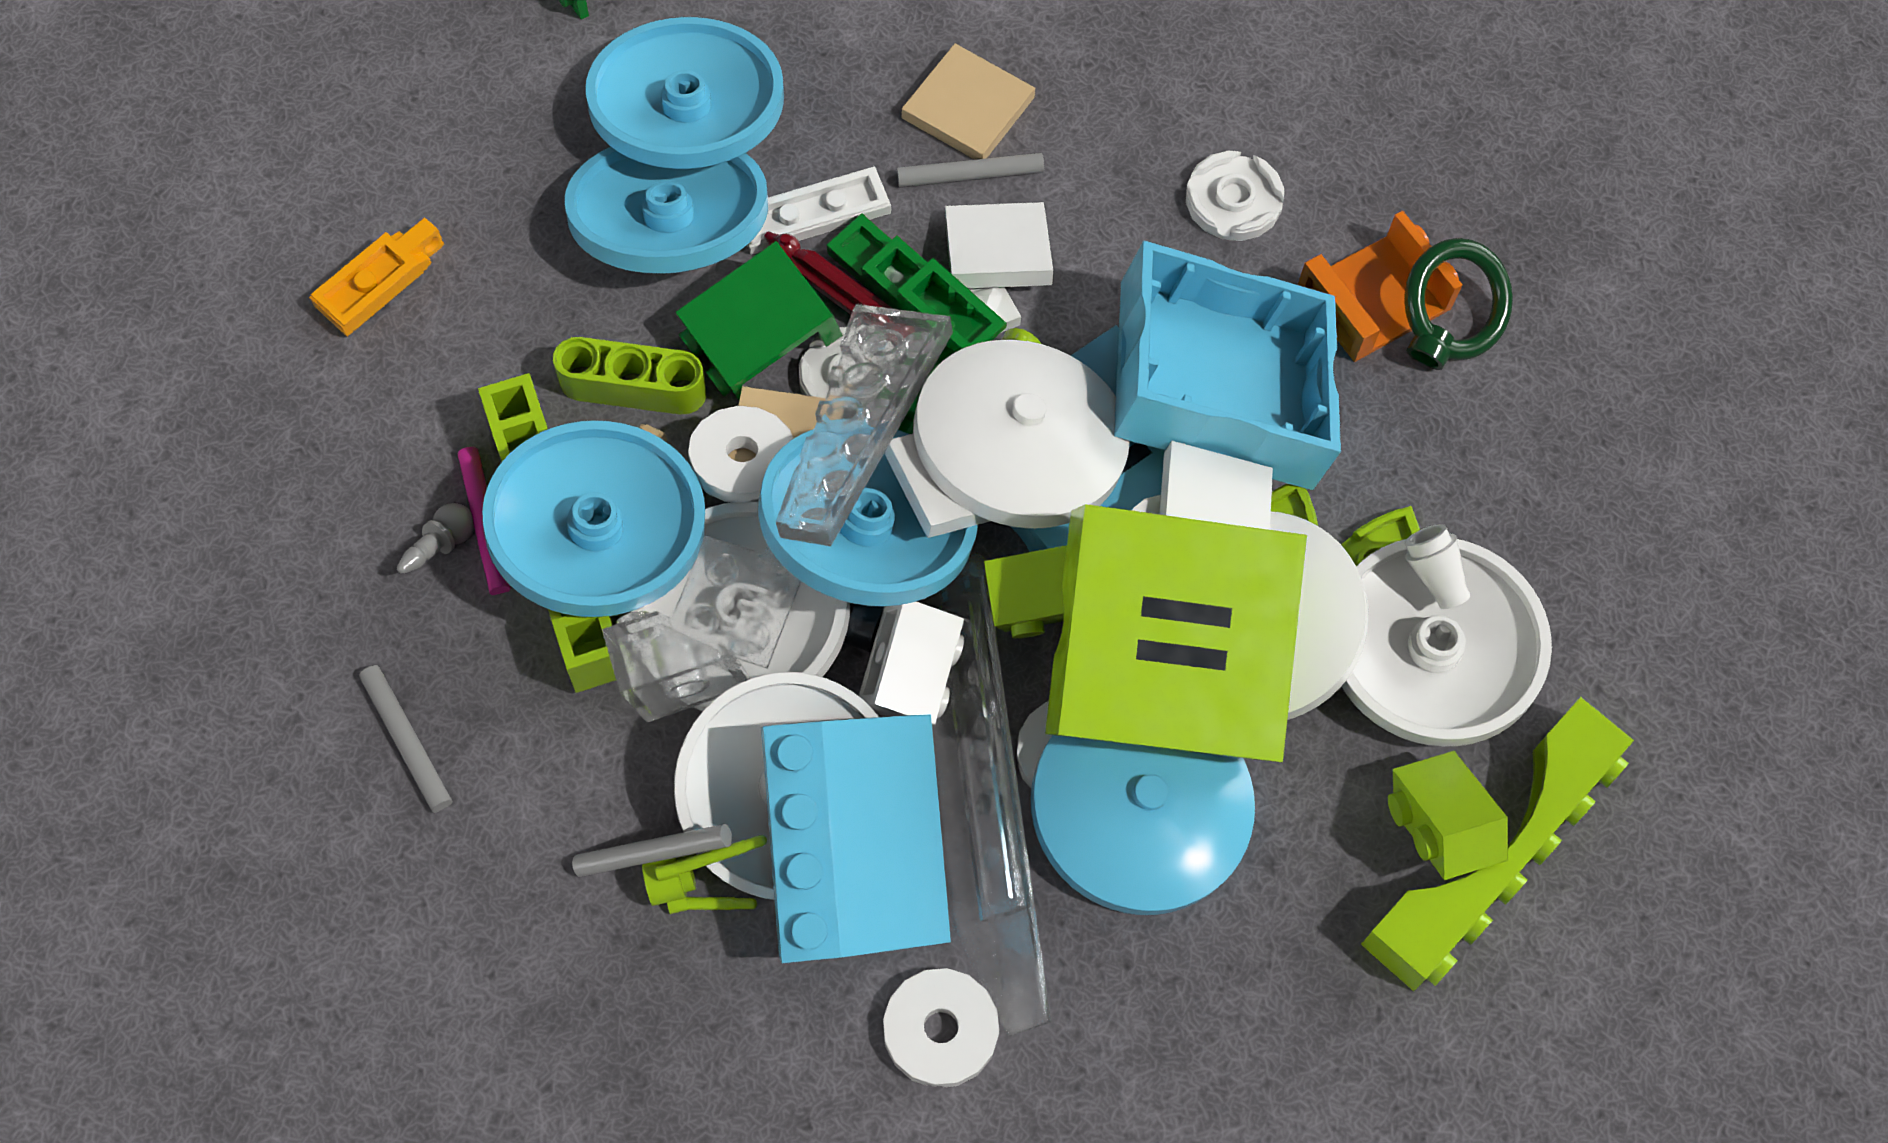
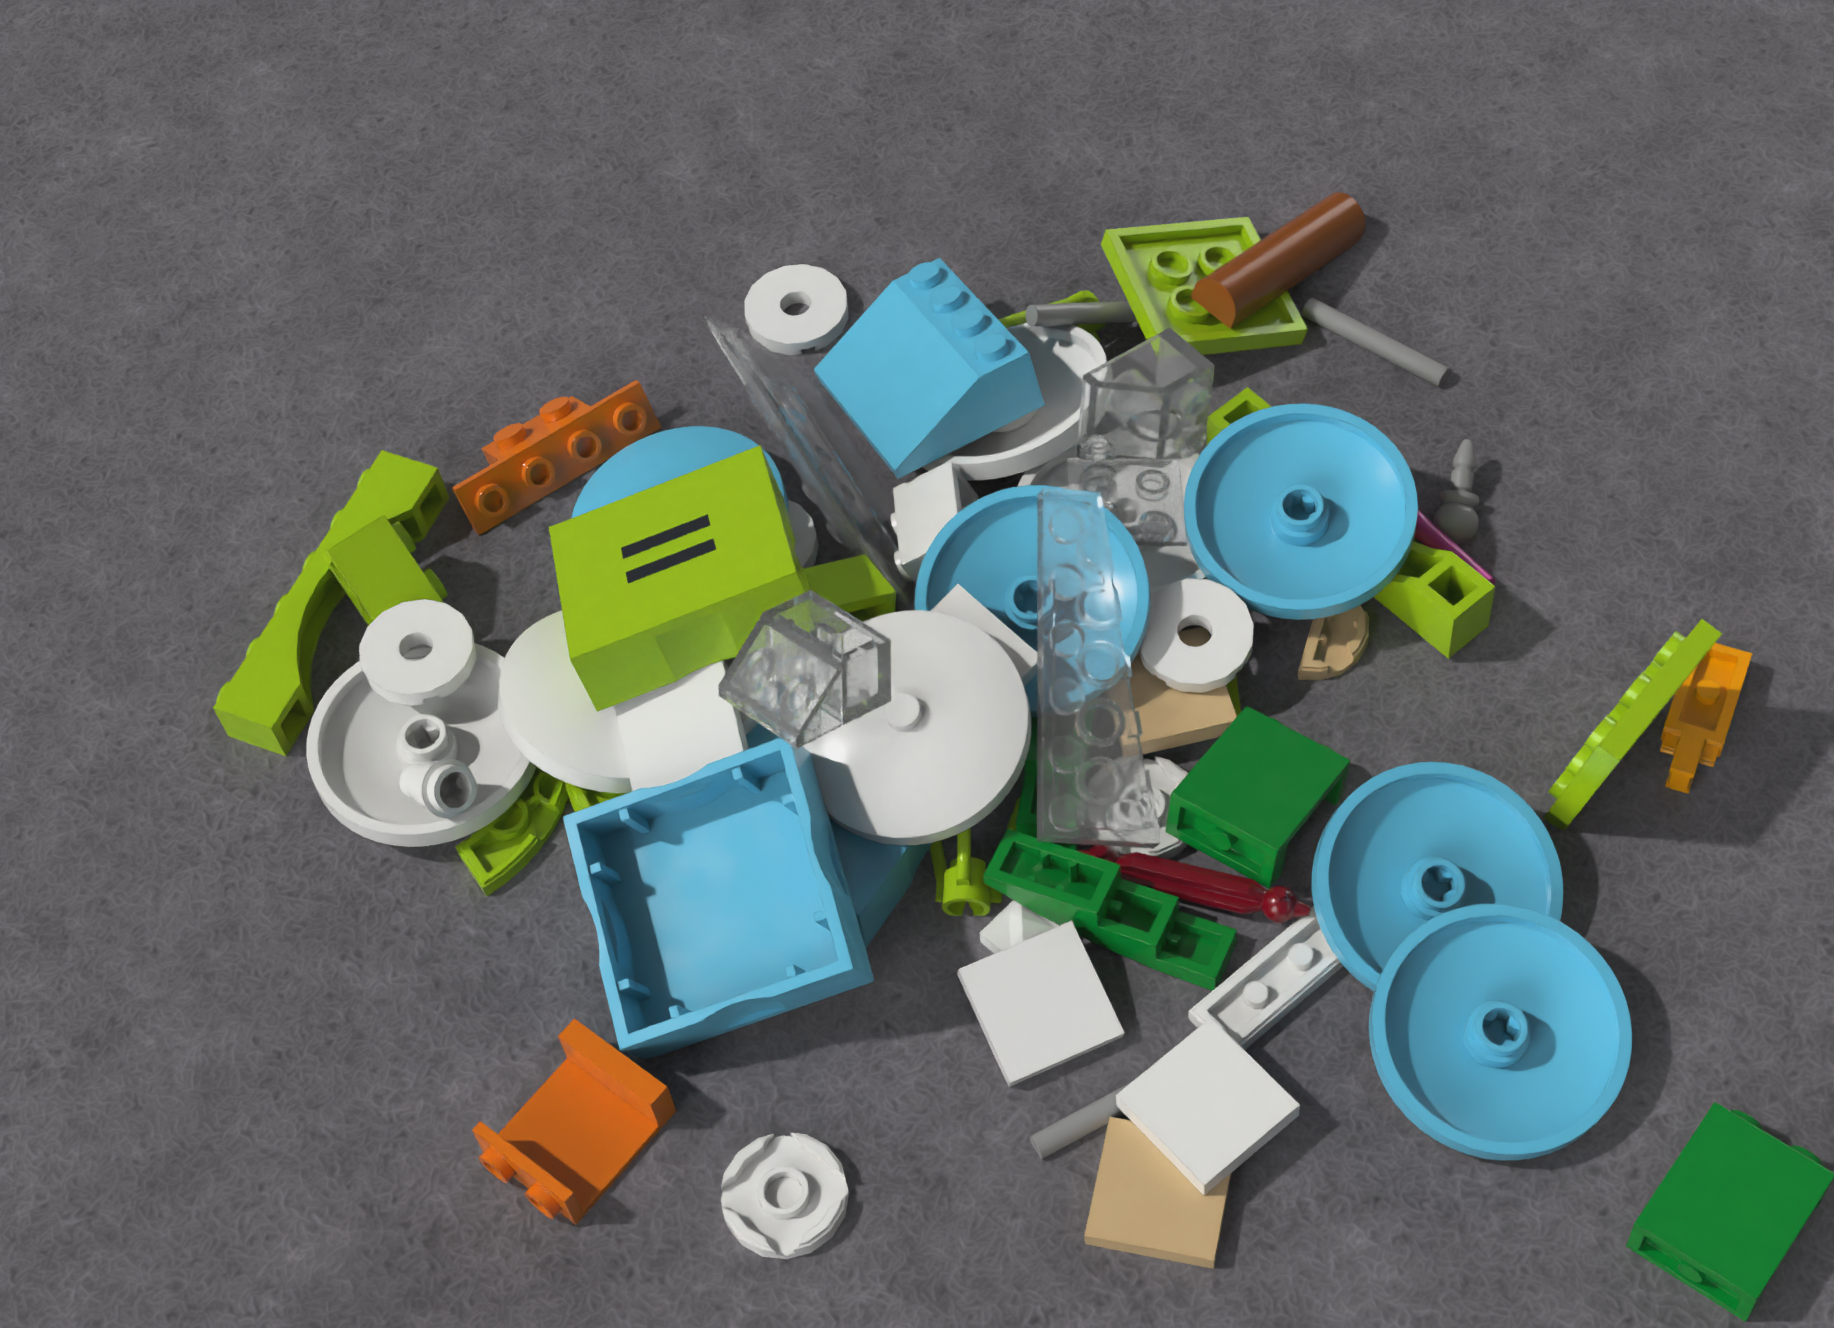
camera: 170 degrees right, 10 degrees down
(442, 842) = (1281, 259): none -> dark orange brick
(455, 226) = (1628, 721): none -> lime plate
(534, 845) = (1164, 263): none -> lime plate
(612, 360) = (1385, 684): lime beam -> none
(912, 128) = (1207, 1105): none -> white tile
(1105, 435) = (808, 670): none -> clear slope
(1250, 947) = (552, 451): none -> orange bracket
(1434, 344) = (495, 1073): dark green piece -> none
(1449, 684) = (413, 625): none -> white tile

